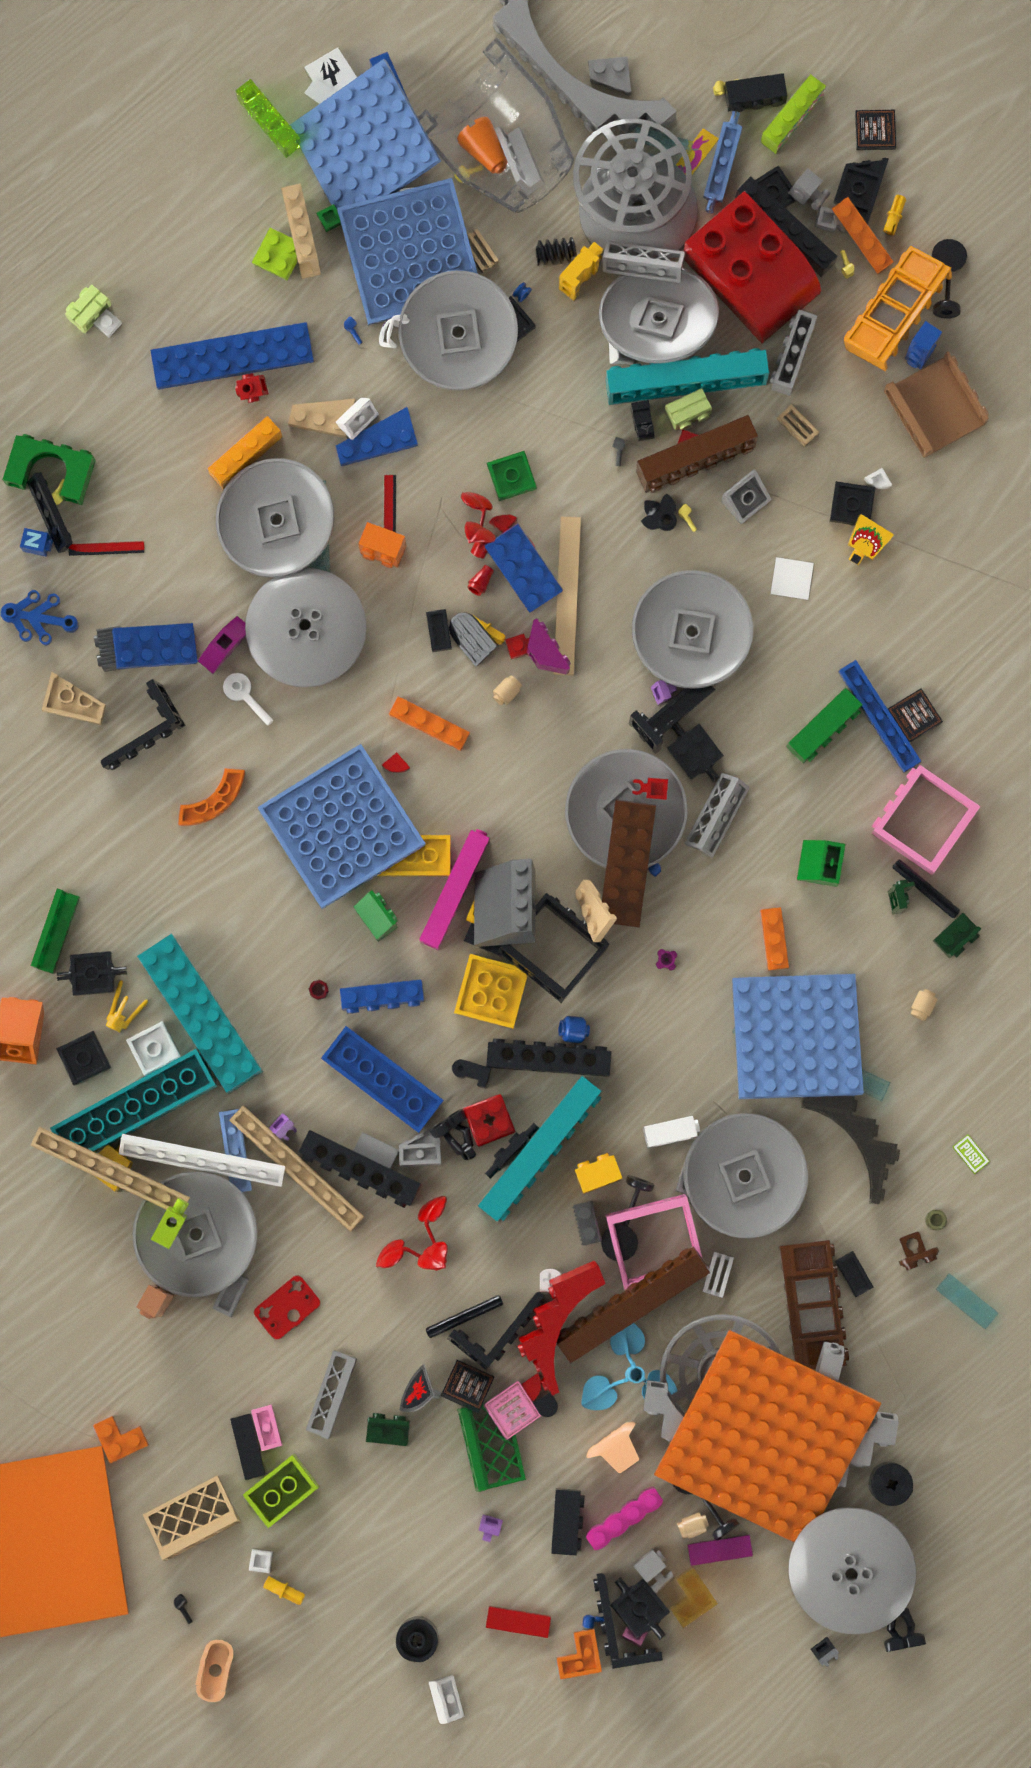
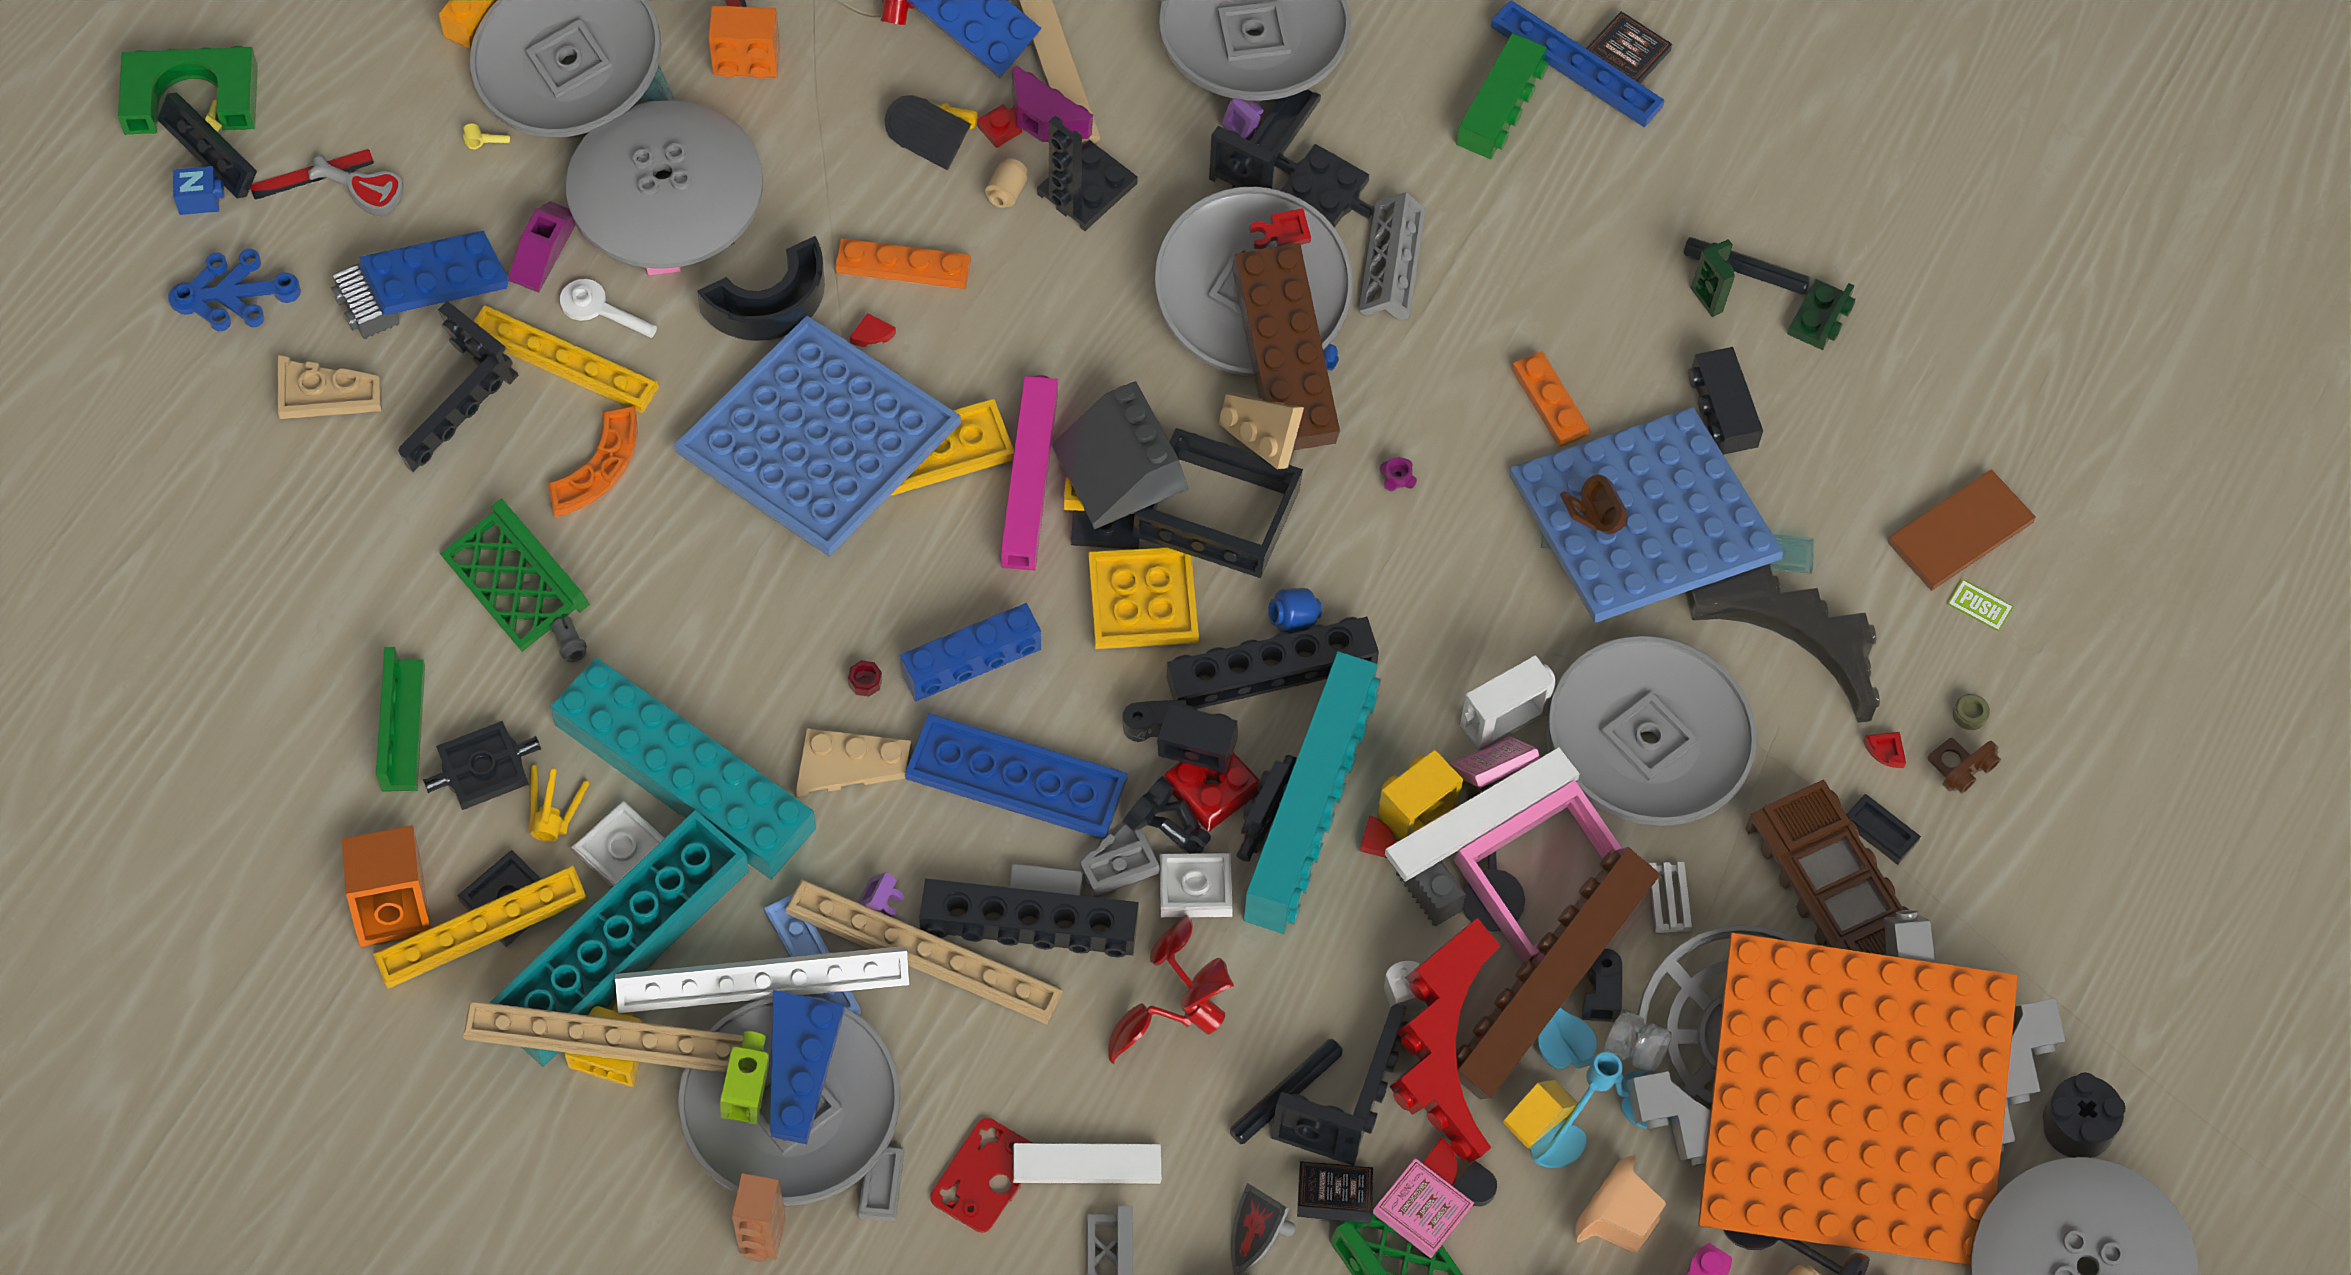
camera: 25 degrees left, 20 degrees down
(62, 1073) = (480, 927): none -> yellow tile
(137, 574) = (373, 193): none -> light grey piece
(160, 852) = (541, 564): none -> green fence
(162, 910) = (571, 645): none -> dark grey pin
(206, 556) = (474, 138): none -> light yellow hand
(208, 1212) = (801, 1054): none -> blue wing
(213, 723) = (568, 360): none -> yellow tile
(292, 1036) = (847, 759): none -> tan wing
(342, 1321) = (1087, 1163): none -> white tile
(344, 736) = (770, 311): none -> black brick
(375, 916) = (919, 538): slope -> none
(438, 630) = (871, 136): black plate -> none
(458, 1179) = (1196, 885): none -> white plate
(480, 581) = (910, 56): red cone -> none
(486, 1098) = (1197, 737): none -> black brick
(554, 704) = (1082, 179): none -> black bracket
(569, 1184) = (1376, 837): none -> red tile
(596, 1378) = (1540, 1112): none -> yellow slope
(627, 1199) = (1481, 814): none -> white tile
(649, 1164) = (1495, 761): none -> bright pink tile
(660, 1319) = (1606, 998): none -> black leg
(661, 1373) = (1649, 1047): none -> clear wheel
(768, 1029) = (1599, 504): none -> reddish brown bracket
(821, 862) = (1577, 270): green slope -> none
(874, 976) = (1725, 400): none -> black brick
(878, 1226) = (1886, 749): none -> red tile
(901, 792) = (1691, 220): bright pink window -> none
(923, 1004) = (1815, 417): tan brick -> none
(967, 1301) = (2073, 813): clear light blue tile -> none
(980, 1104) = (1961, 529): none -> dark orange tile

